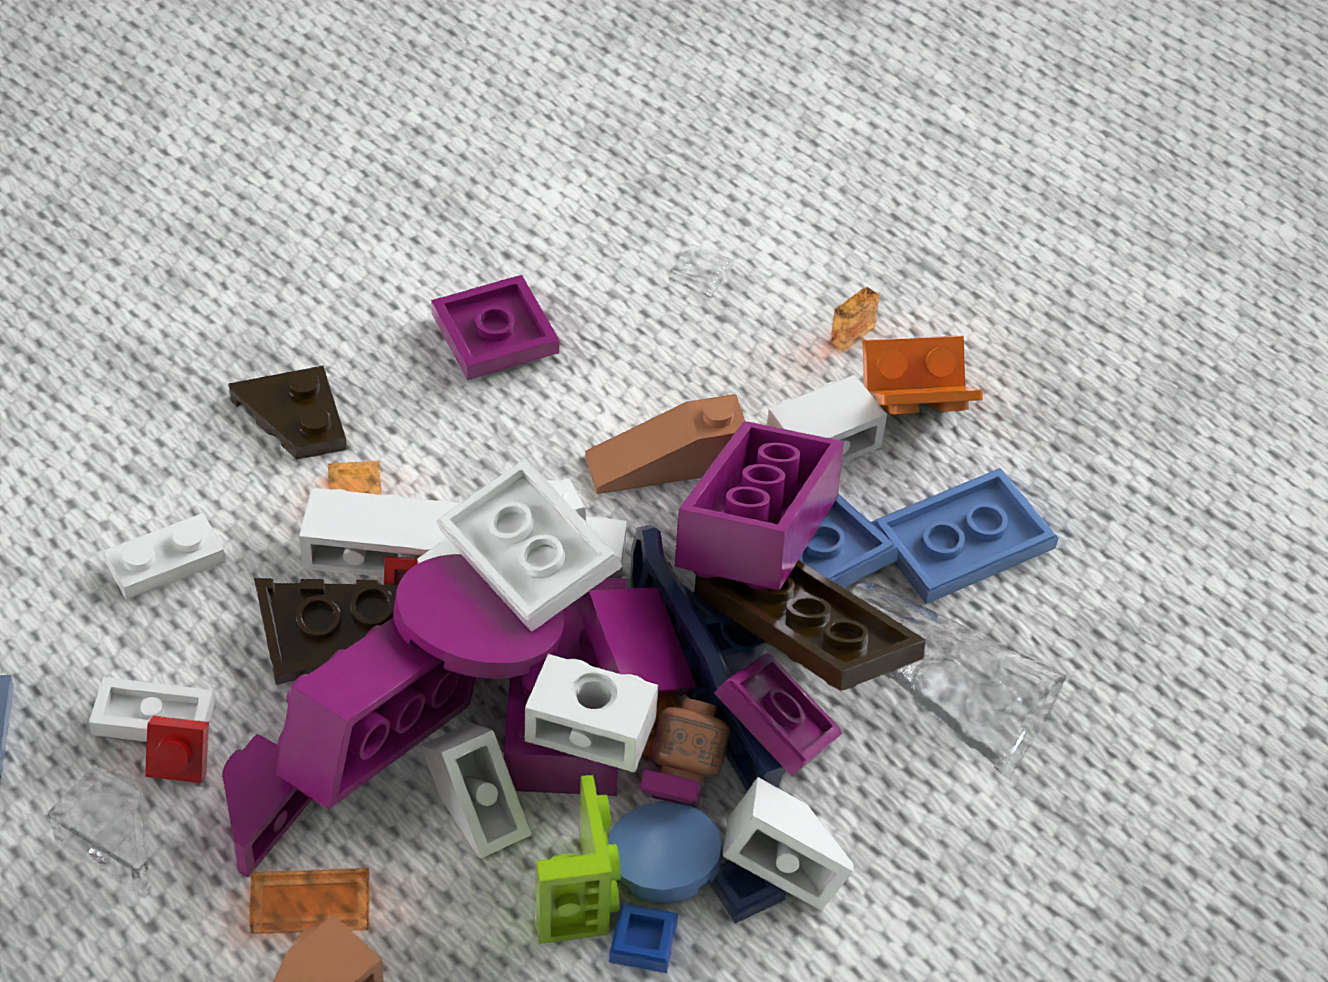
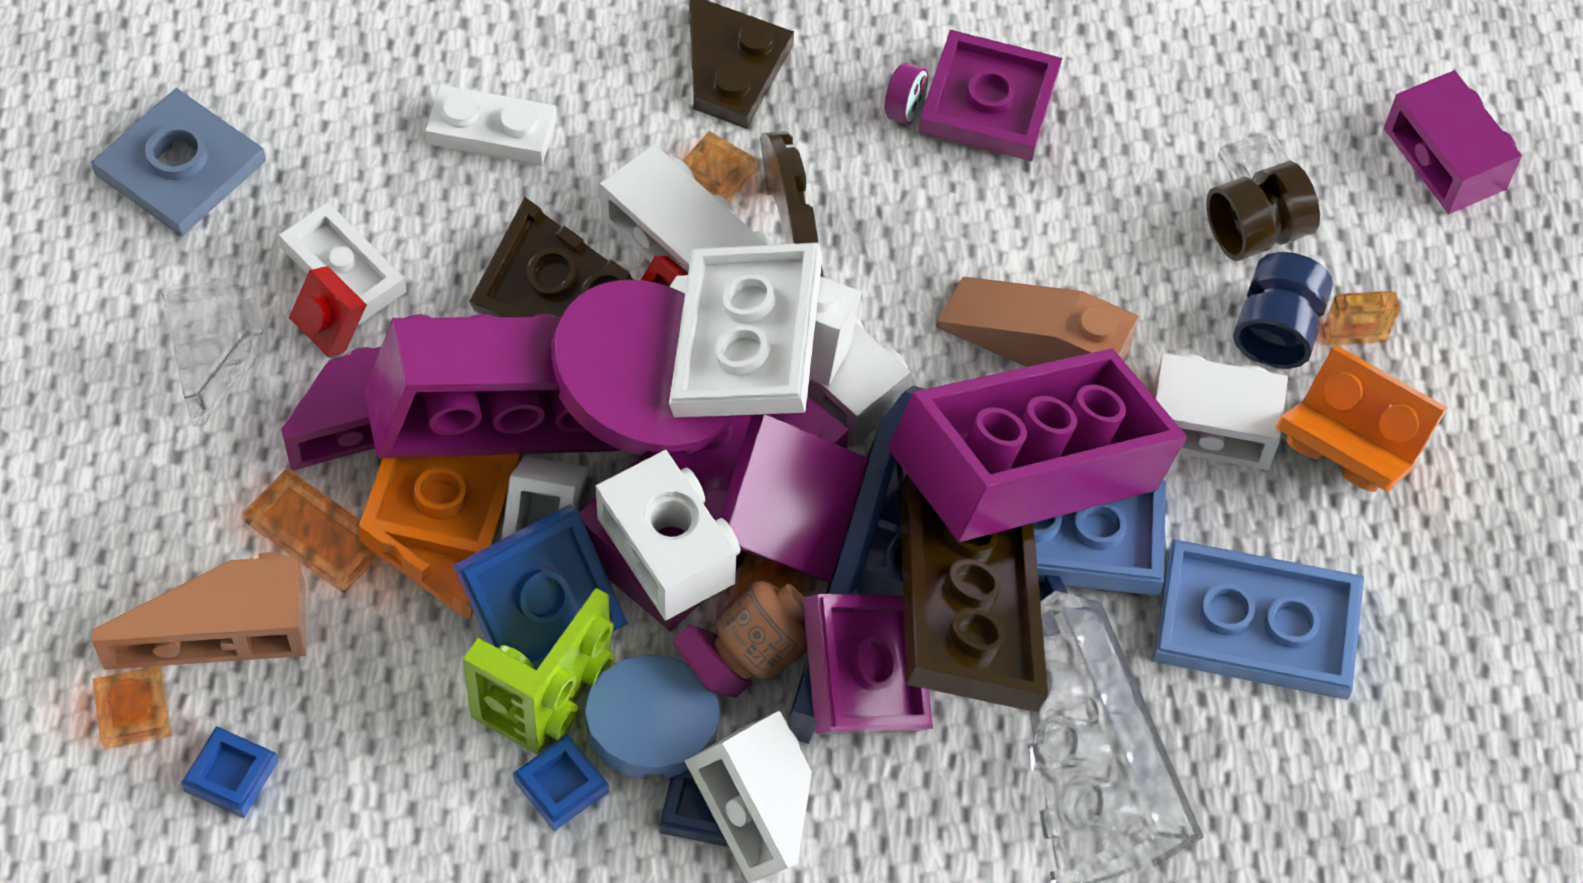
camera: 40 degrees right, 10 degrees up
(400, 829) = (435, 514): none -> orange wing
(437, 452) = (787, 183): none -> dark brown tile
(439, 358) = (906, 93): none -> magenta tile
(519, 818) = (535, 584): none -> blue tile
(737, 291) = (1263, 210): none -> dark brown wheel
(805, 184) = (1452, 141): none -> magenta brick
(807, 341) = (1283, 310): none -> dark blue wheel

